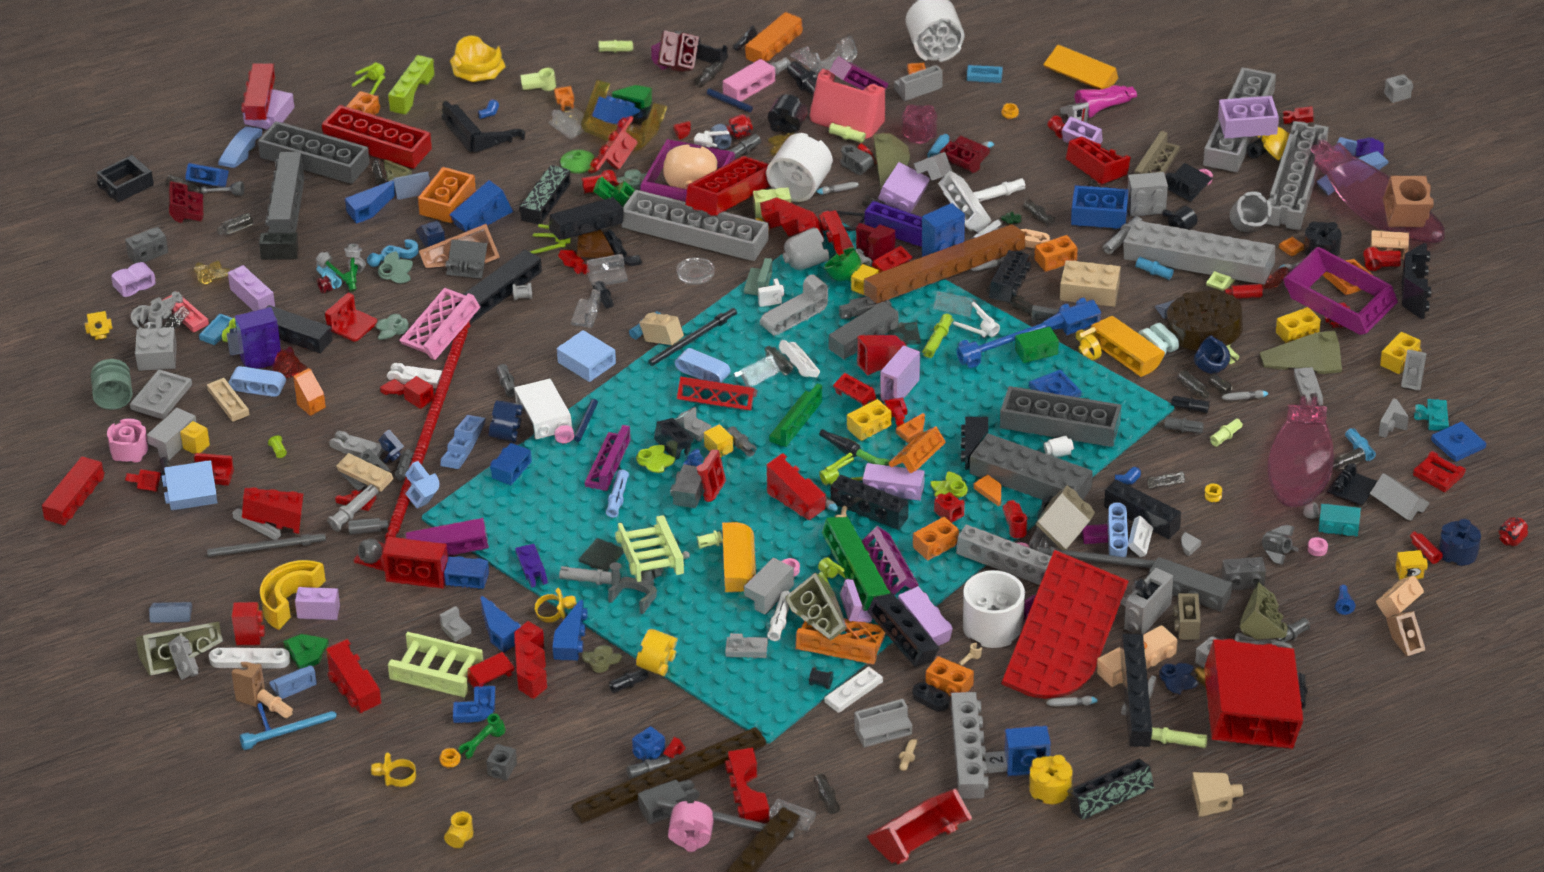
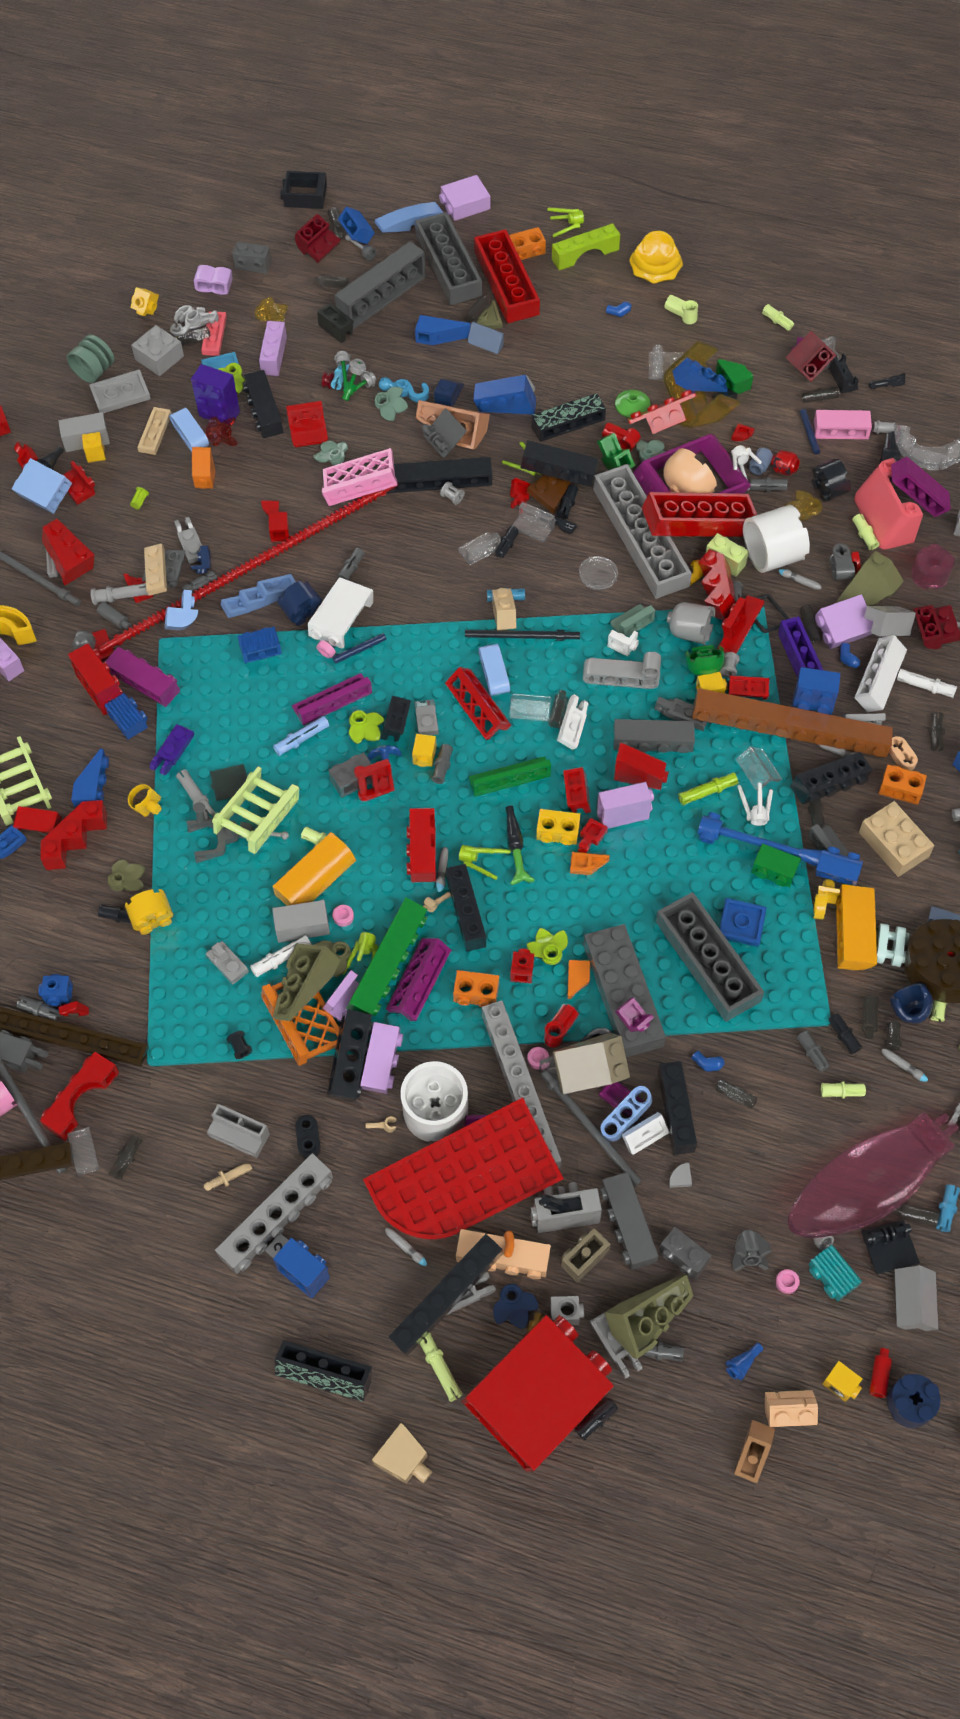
camera: 45 degrees right, 20 degrees up
(127, 440) = (46, 412): bright pink brick -> none
(258, 92) = (461, 178): brick -> none
(405, 374) = (297, 509): white hinge -> none
(446, 193) = (495, 362): orange brick -> none
(454, 625) = (67, 756): light grey bracket -> none
(470, 134) = (581, 335): black hinge -> none
(564, 97) = (685, 336): orange plate -> none
(567, 637) = (123, 836): blue slope -> none
(586, 356) = (428, 588): light blue brick -> none
(774, 38) = (908, 398): orange brick -> none
(853, 689) = (262, 1074): white tile -> none
(874, 241) = (753, 659): dark red brick -> none
(895, 481) = (507, 904): lavender brick -> none
(907, 332) = (687, 765): clear smoke piece -> none
(919, 450) = (555, 892): orange fence -> none
(919, 825) = (140, 1253): red windscreen -> none
(923, 209) = (848, 658): none -> blue arm
(939, 144) = (930, 599): dark azure cylinder -> none
(949, 676) = (338, 1133): orange brick -> none
(974, 431) = (625, 910): black slope -> none
(1011, 217) = (909, 718): dark green plant -> none
(1050, 779) = (292, 1325): yellow brick -> none
(1058, 446) = (676, 984): white brick -> none
(1062, 468) = (634, 1016): none -> magenta bracket
(1213, 492) = (764, 1148): yellow bush -> none

